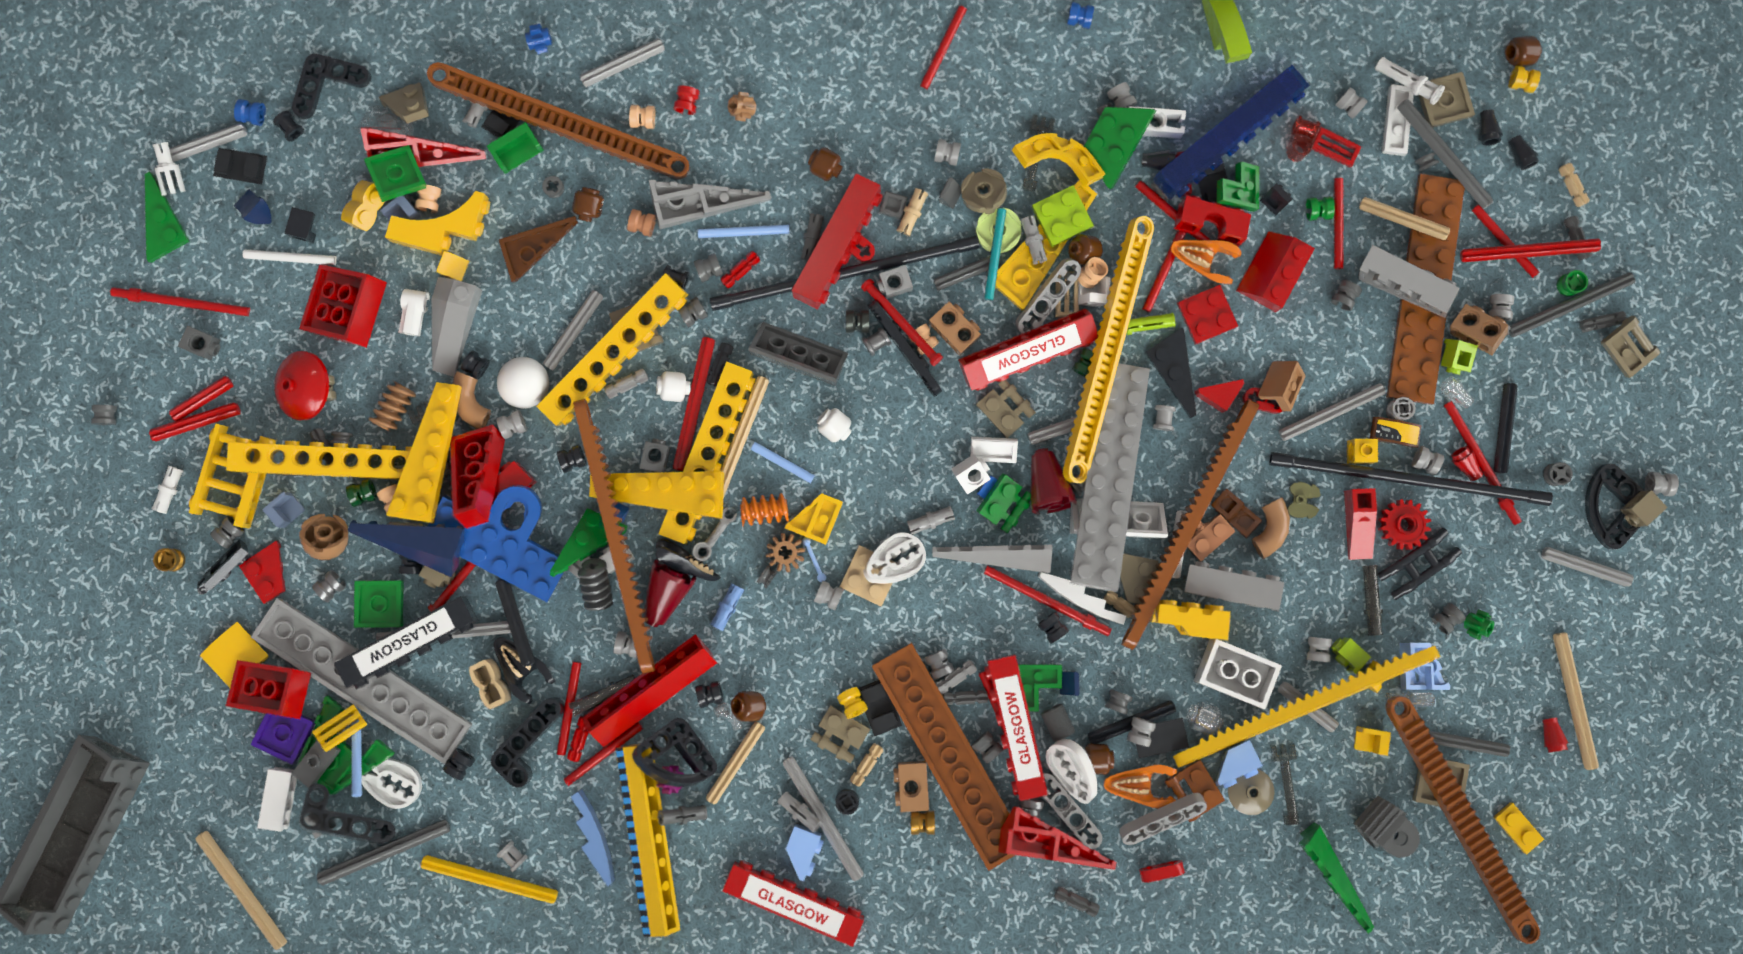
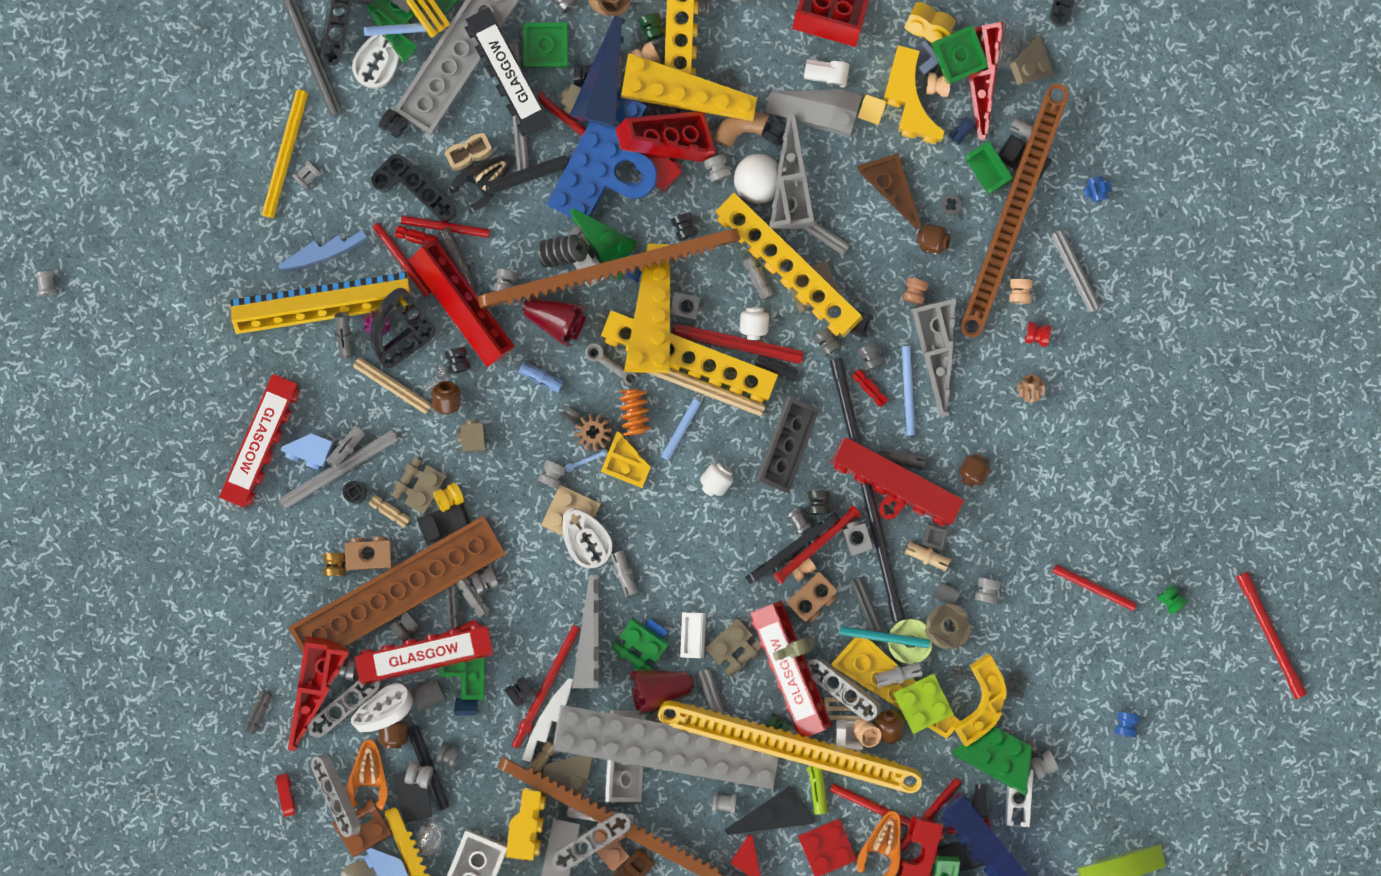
camera: 95 degrees right, 0 degrees up
(392, 406) = (735, 55): medium nougat piece -> none
(475, 174) = (962, 130): none -> dark blue pin
(545, 346) = (792, 197): none -> light grey wedge
(681, 561) = (584, 333): black animal -> none
(789, 678) = (472, 436): none -> dark tan brick
(970, 483) = (660, 612): white brick -> none
(1010, 343) = (795, 648): none -> olive bar
(1212, 549) = (593, 844): none -> light grey beam

